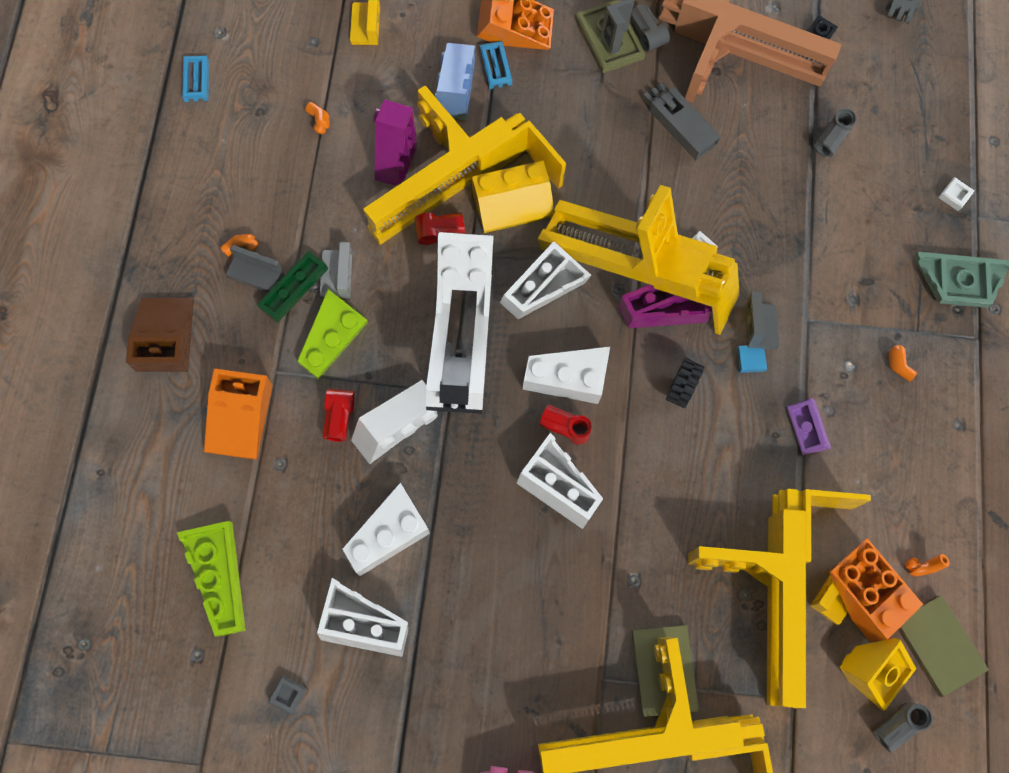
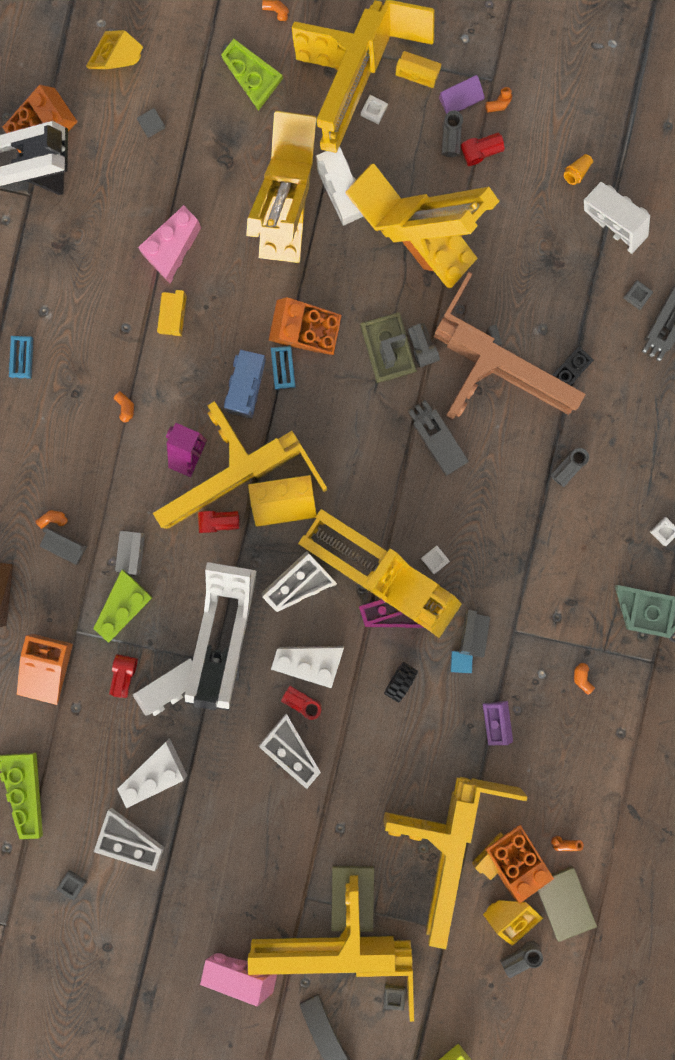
camera: 15 degrees right, 15 degrees up
(292, 287) = (93, 562): dark green plate -> none

